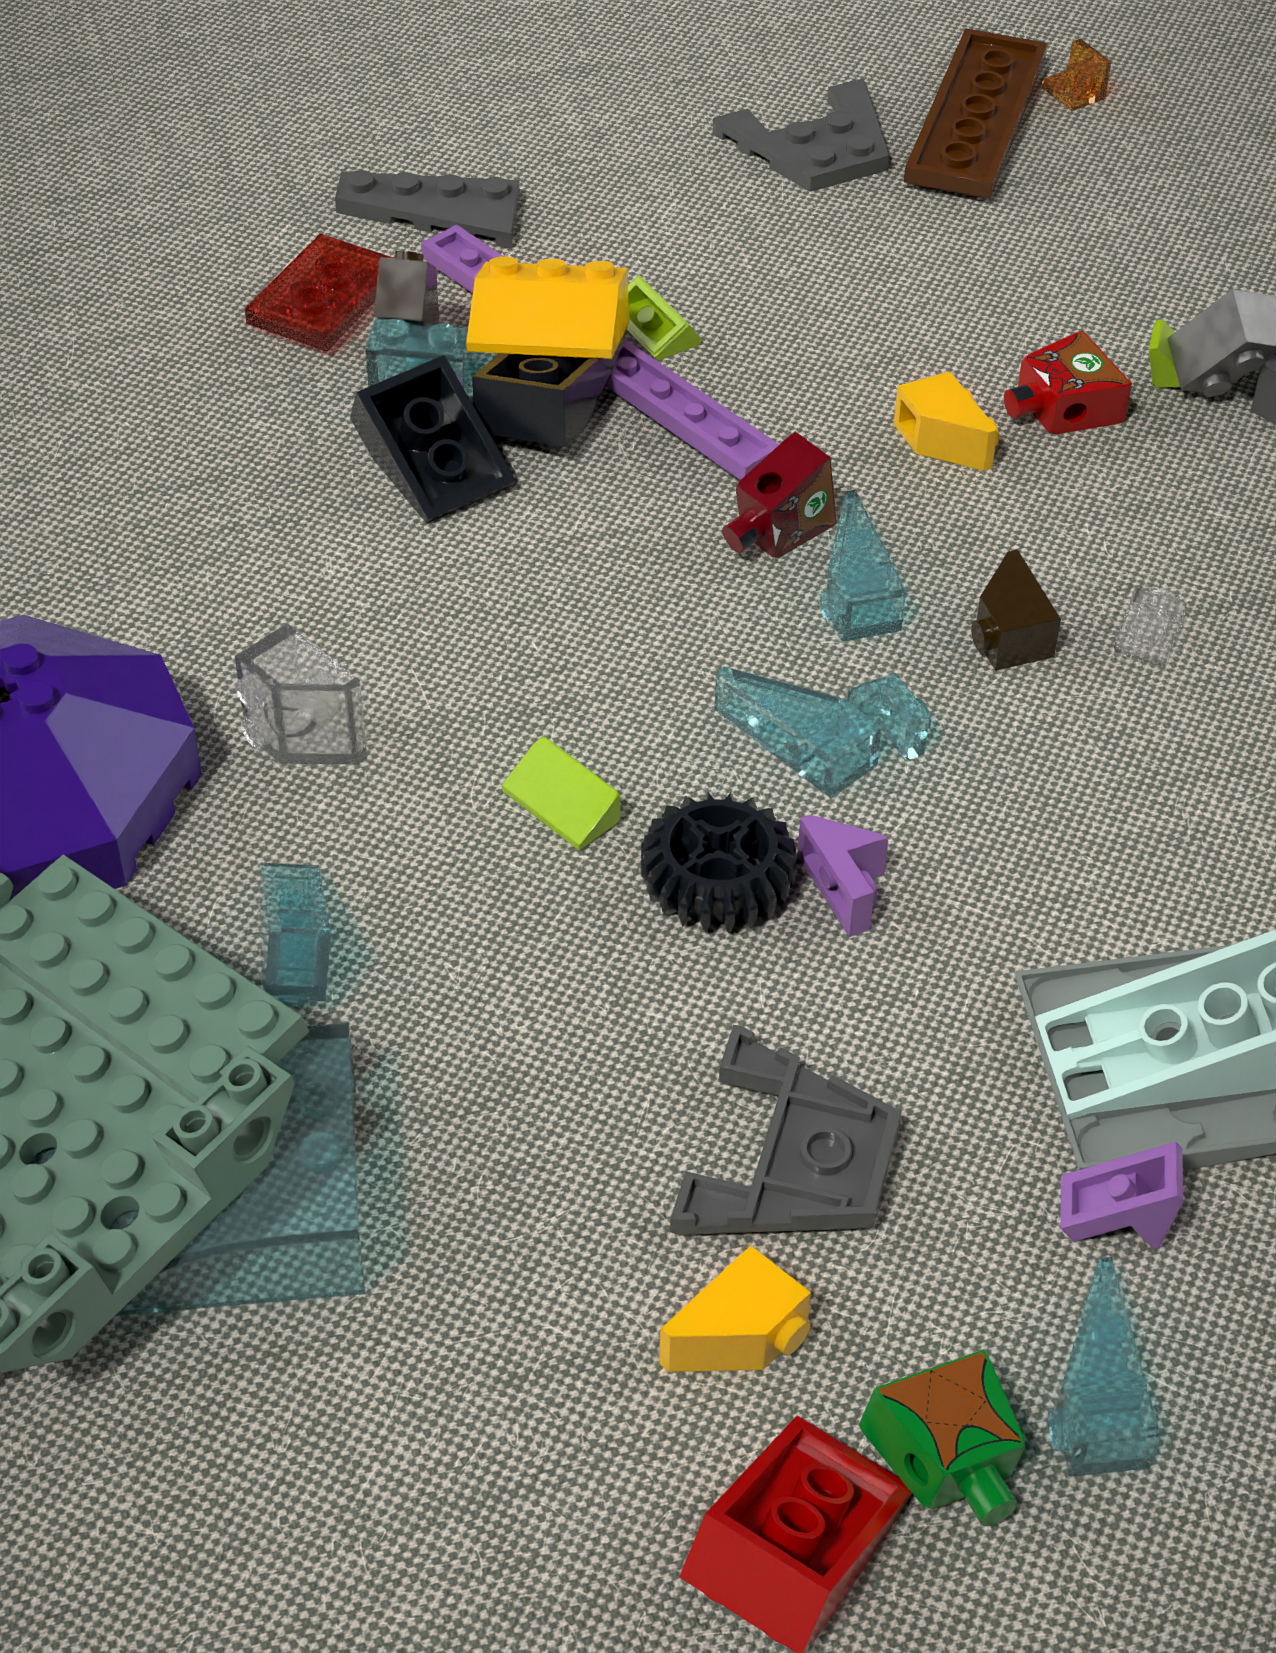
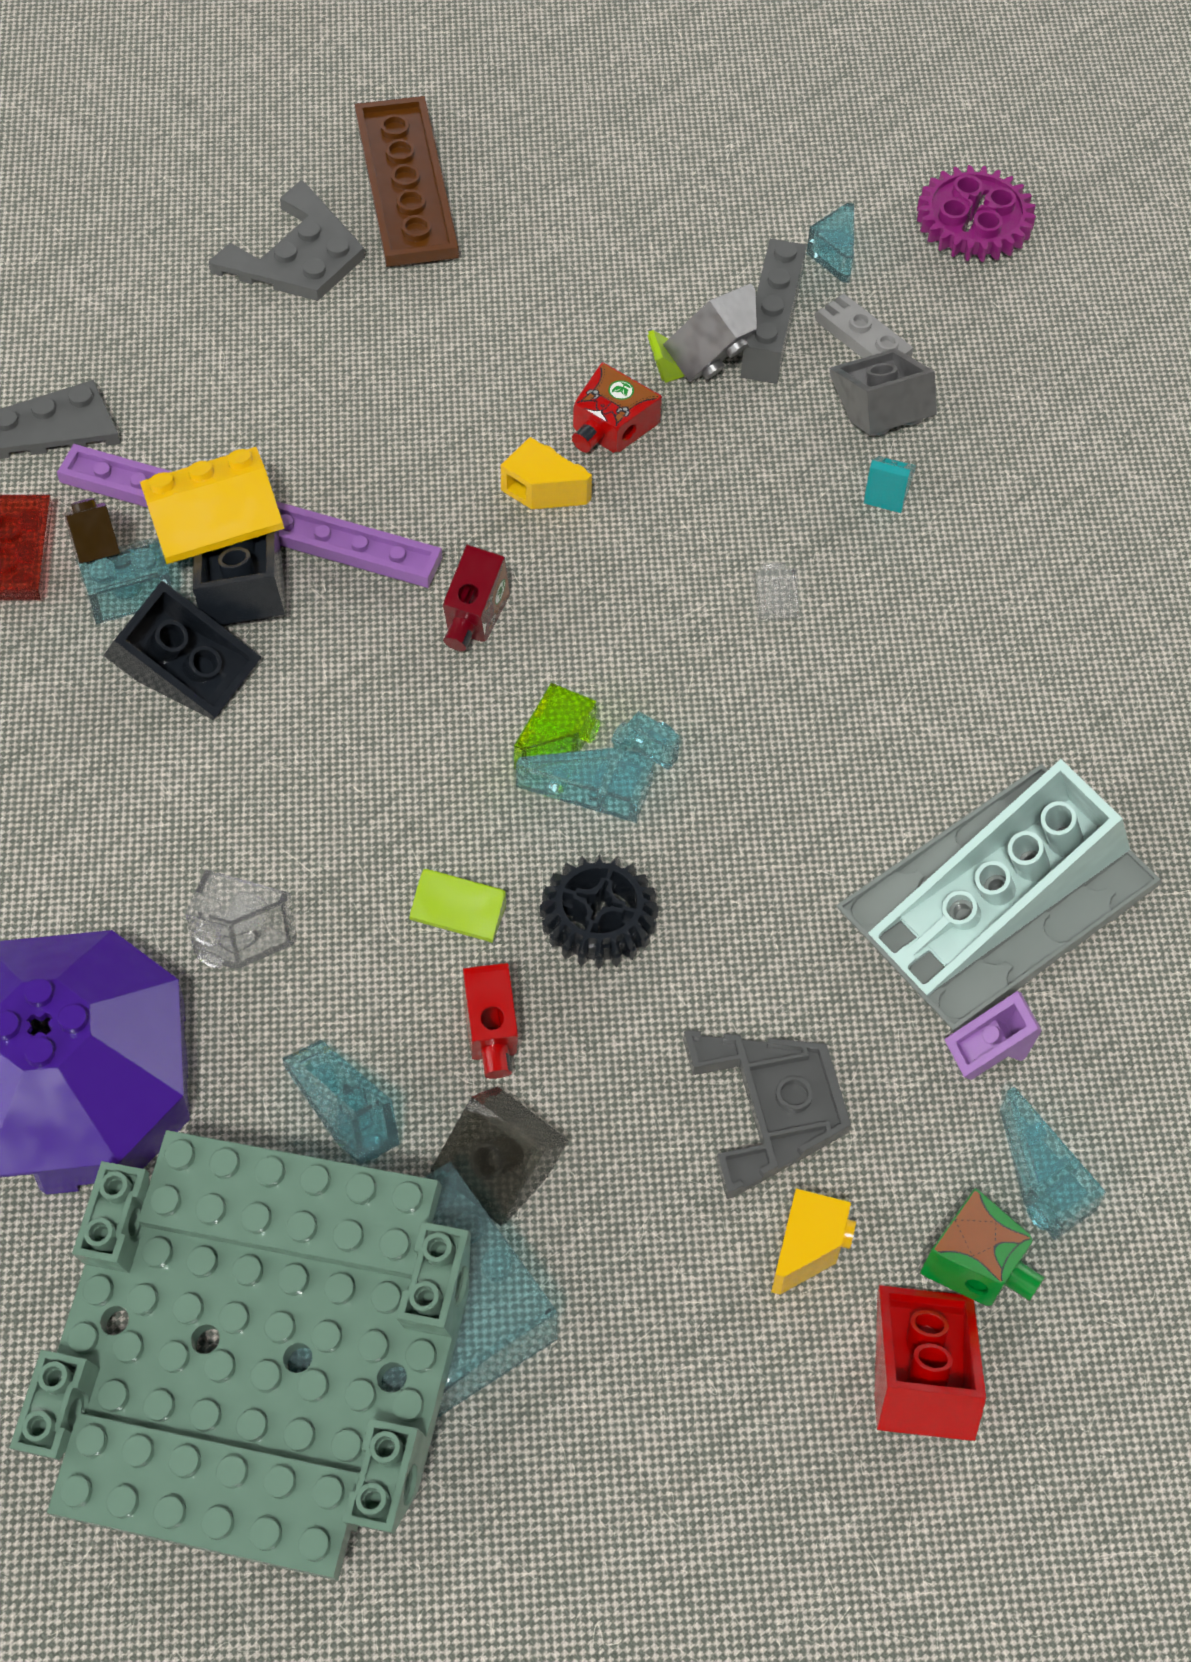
camera: 30 degrees left, 10 degrees up
(429, 1058) = (501, 1152): none -> clear smoke slope
(512, 907) = (490, 1017): none -> red torso
(657, 323) = (286, 475): lime slope -> none
(798, 652) = (558, 724): none -> clear neon green slope
(843, 867) = (677, 876): medium lavender slope -> none
(862, 585) = (564, 642): clear light blue slope -> none
(1015, 617) = (684, 624): dark brown slope -> none
(1083, 80) = (465, 119): clear orange panel -> none

